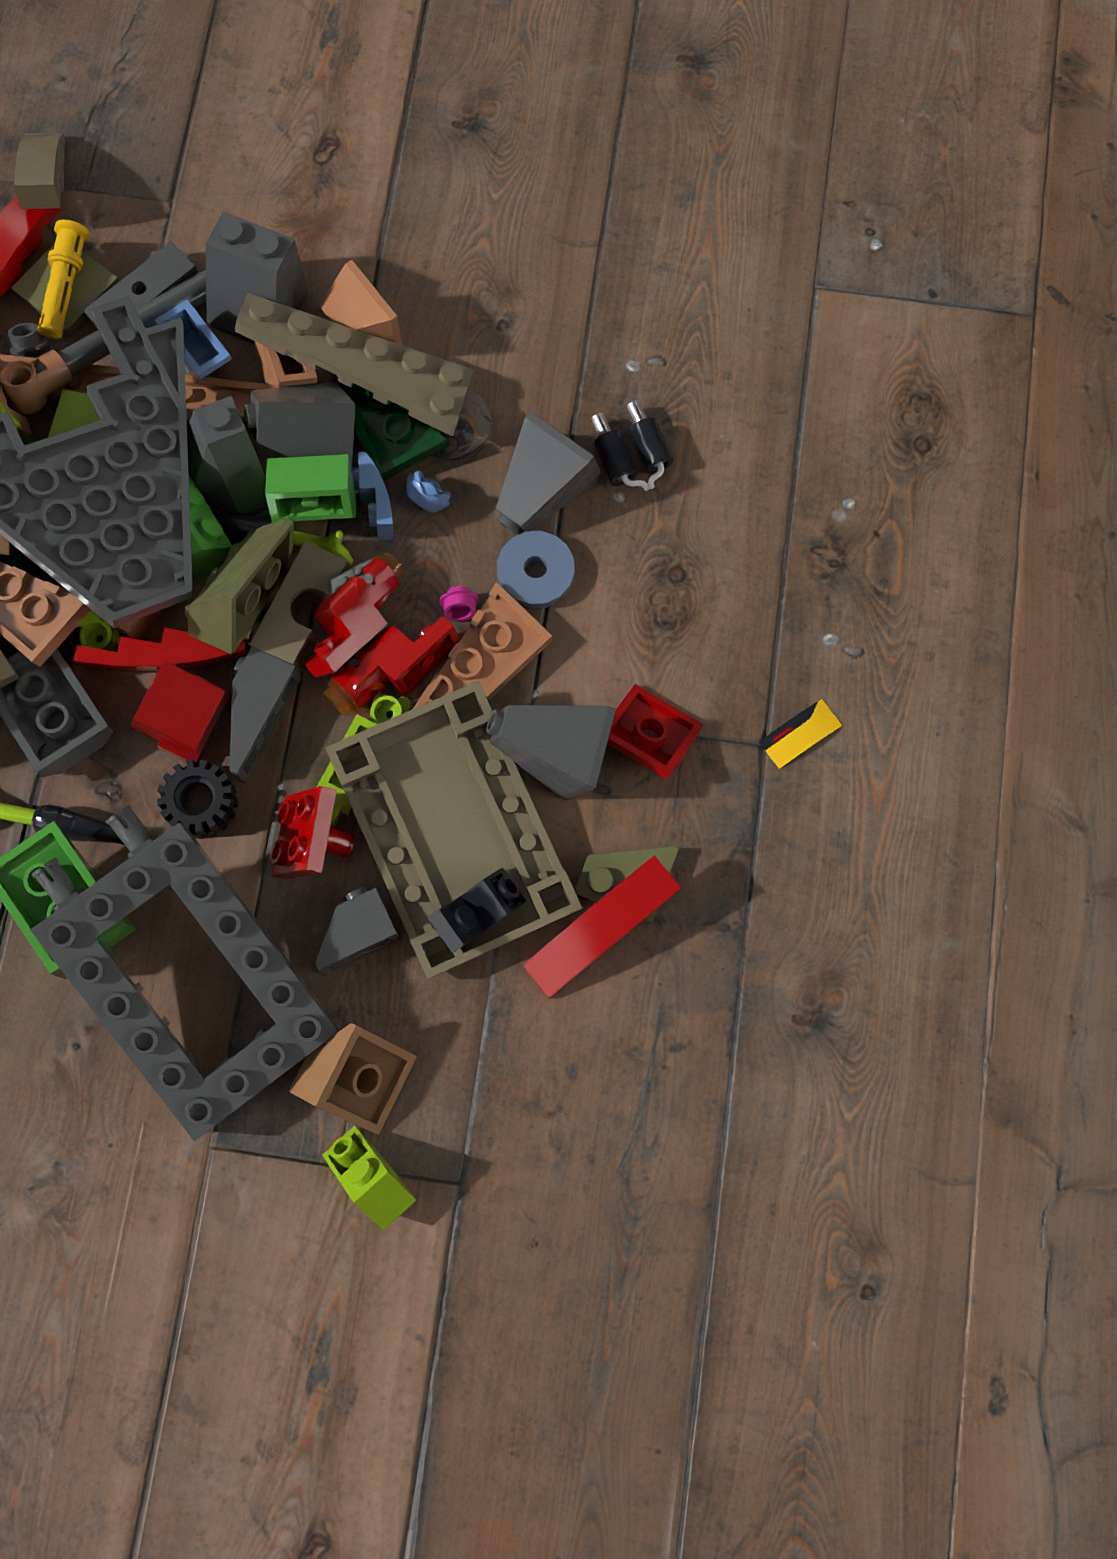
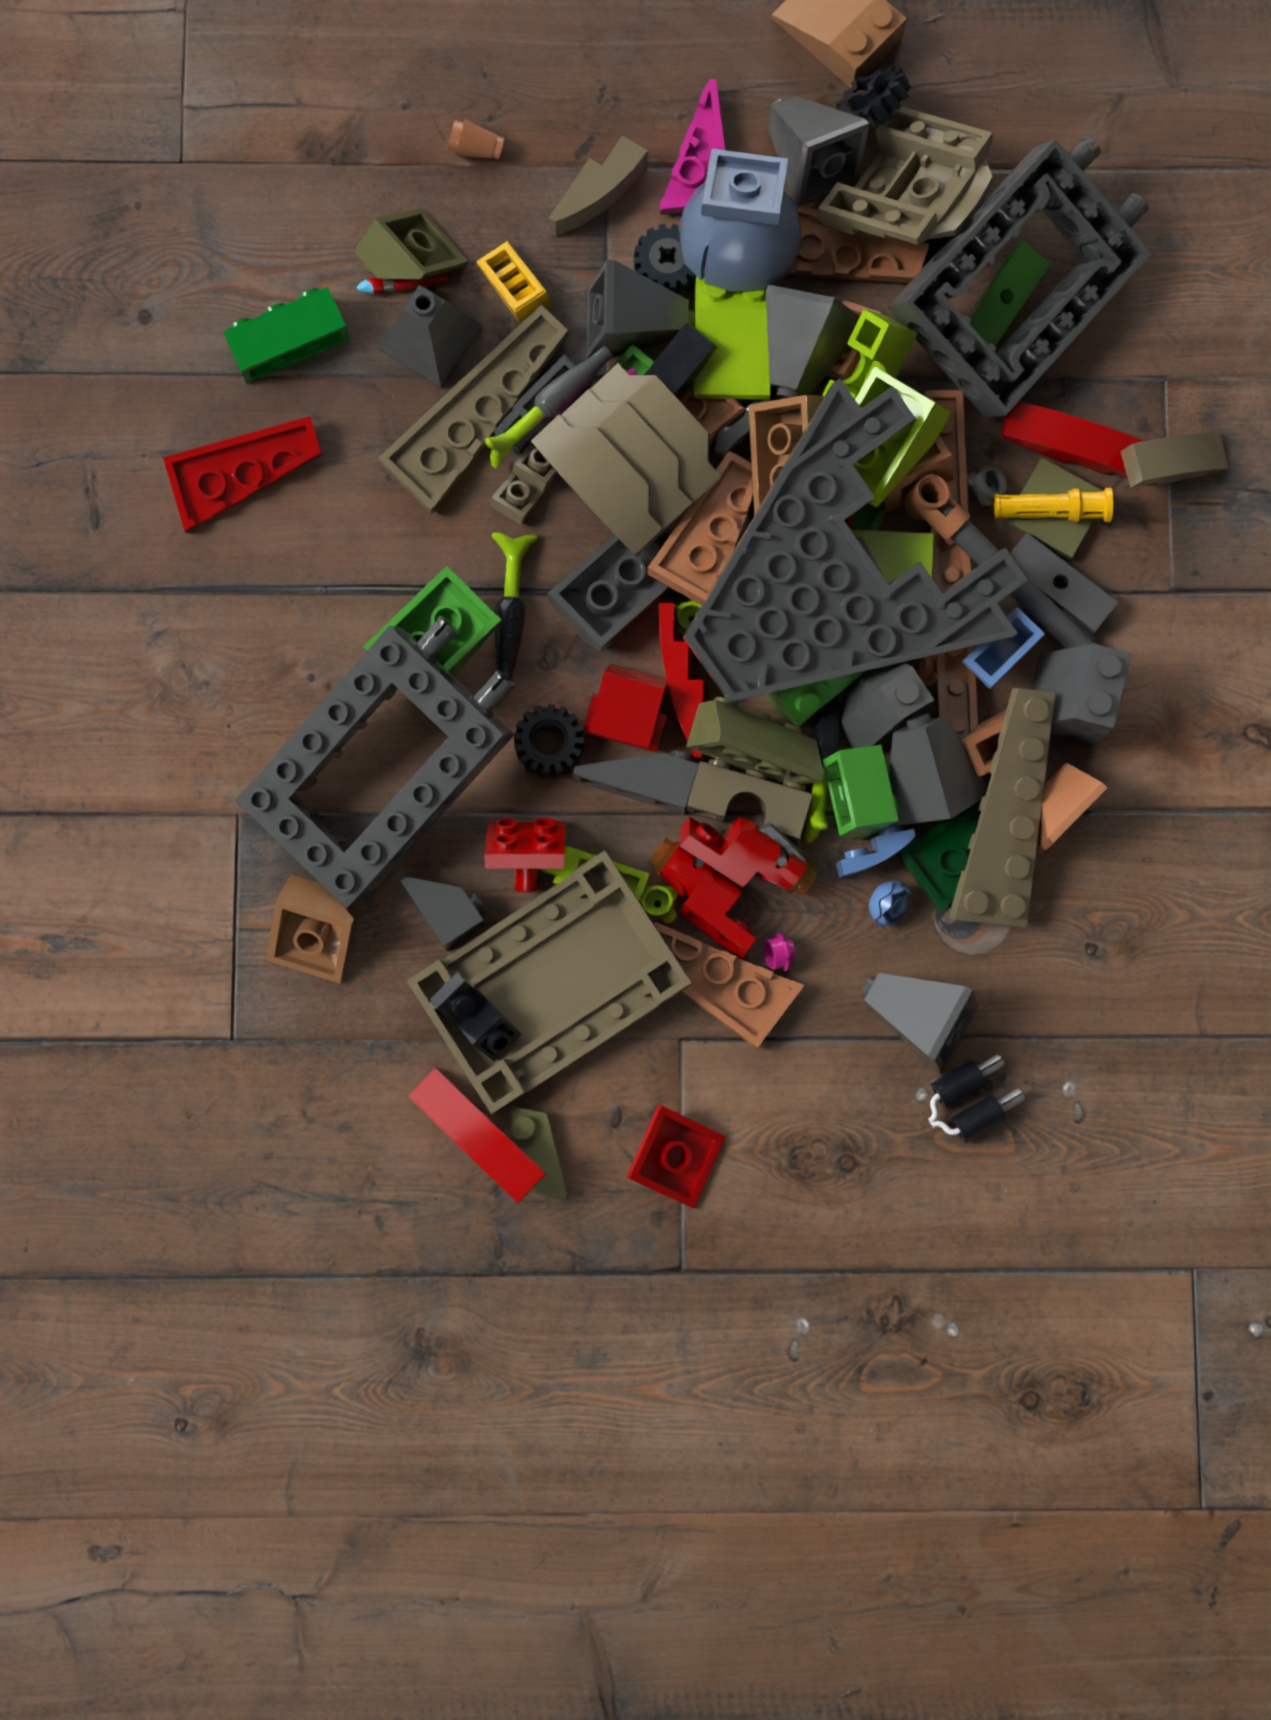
camera: 80 degrees right, 5 degrees up
(368, 1178) = (225, 957): lime slope -> none
(541, 548) = (830, 998): sand blue tile -> none
(554, 743) = (643, 1065): dark grey slope -> none
(800, 733) = (700, 1306): yellow sticker -> none

